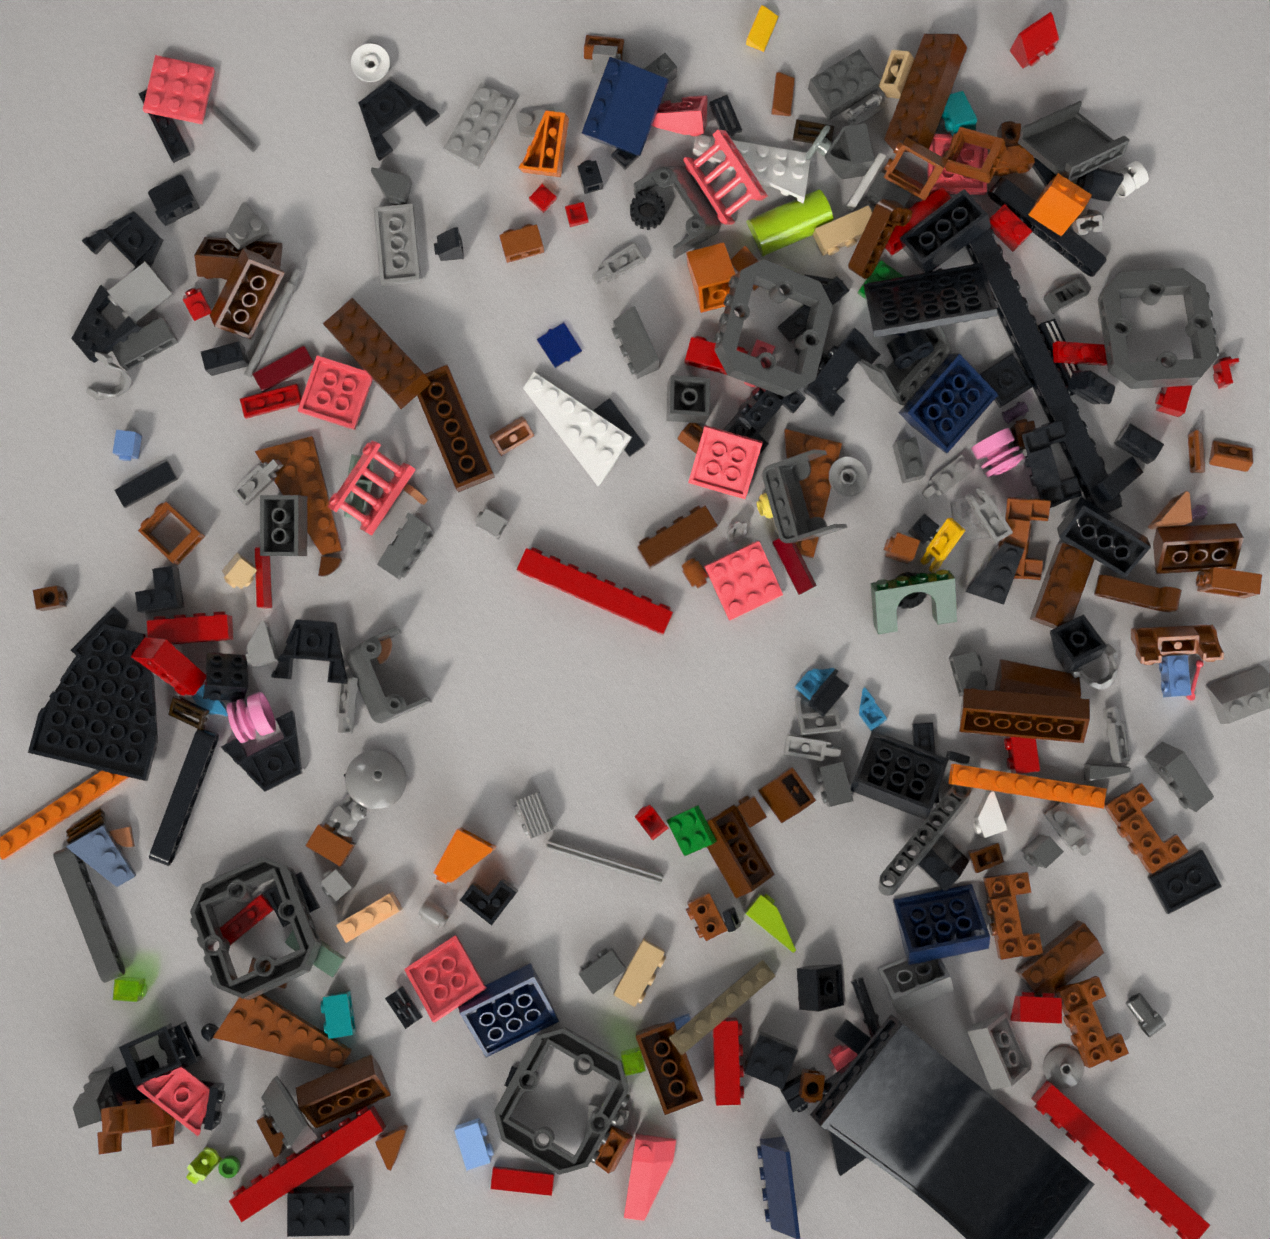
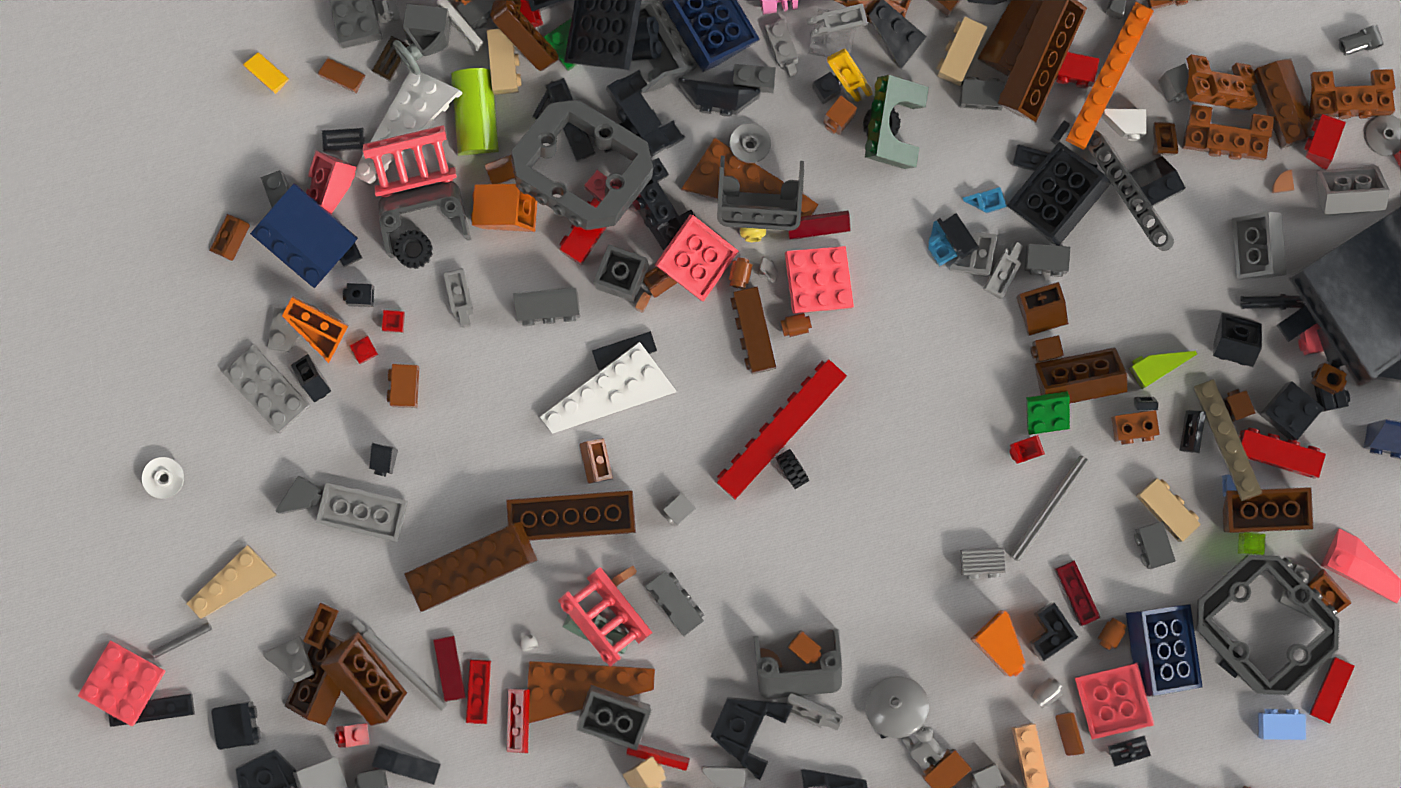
camera: 70 degrees left, 0 degrees up
(185, 357) = (405, 764): none -> black slope
(224, 358) = (420, 724): black brick -> none
(255, 444) = (518, 720): none -> tile
(257, 481) = (558, 731): light grey hinge -> none
(283, 242) = (320, 626): none -> dark orange slope
(303, 157) = (235, 579): none -> tan wing
(327, 431) = (528, 643): none -> white hinge
(328, 565) = (666, 686): reddish brown tile -> none
(335, 393) = (493, 623): coral plate -> none
(388, 107) = (215, 475): black wing -> none
(401, 677) = (805, 648): none -> dark orange brick
(402, 947) = (1070, 734): none -> dark orange slope
(500, 160) = (311, 378): none -> black slope
(506, 956) = (1112, 634): none -> dark orange brick
(535, 913) = (1077, 593): none -> dark red tile
(559, 345) = (520, 383): clear blue piece -> none
(561, 612) = (792, 469): none -> black tyre
(601, 55) = (242, 239): light grey brick -> none
(668, 428) = (643, 301): none -> nougat tile
(720, 971) = (1192, 431): none -> black tile
(725, 507) = (740, 273): none -> dark orange brick
(759, 1007) = (1238, 405): none -> reddish brown brick
(880, 434) = (718, 97): none -> black wedge
(941, 924) = (1214, 203): dark blue slope -> none
(983, 983) = (1283, 183): none -> nougat tile
(1001, 641) = (961, 50): none -> tan brick
(1052, 893) = (1221, 88): none -> dark orange bracket
(1067, 828) = (1161, 51): light grey hinge -> none

